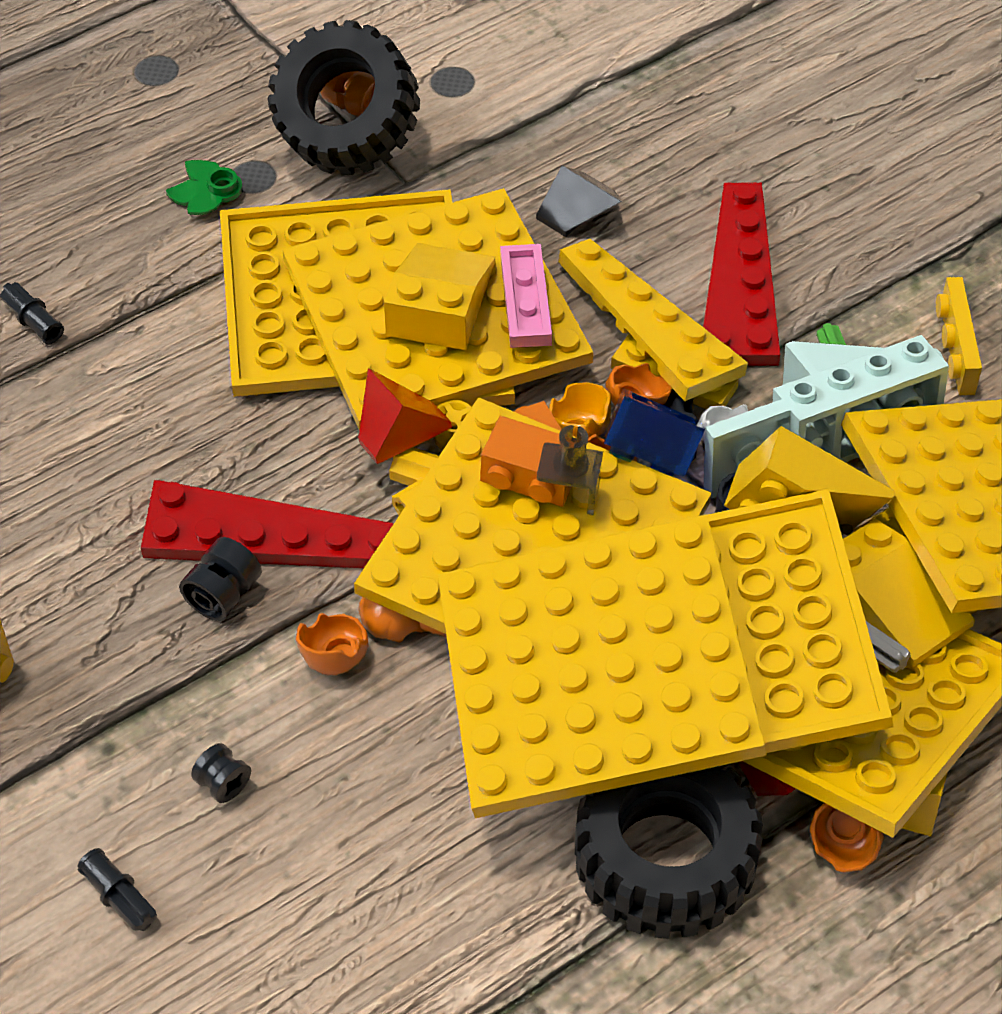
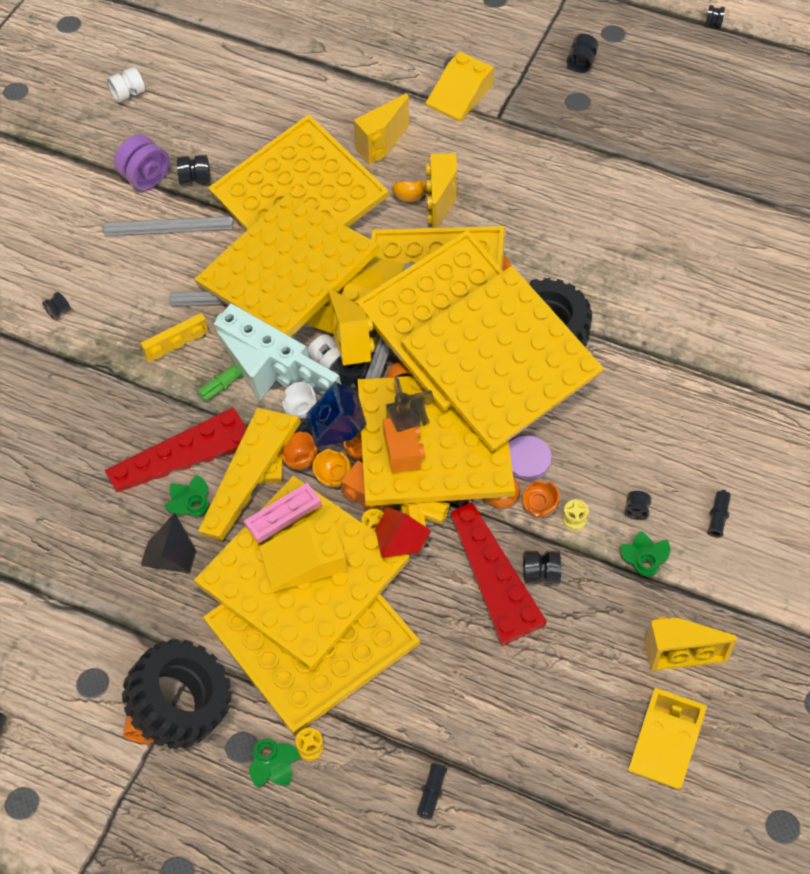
camera: 120 degrees left, 5 degrees up
(145, 743) = (645, 551): none -> green plate
(194, 224) = (307, 738): none -> yellow wheel
(271, 669) = (579, 510): none -> light yellow wheel
(420, 681) = (529, 457): none -> lavender tile
(598, 515) = (417, 400): none -> clear smoke bracket
(654, 254) = (185, 497): none -> green plate

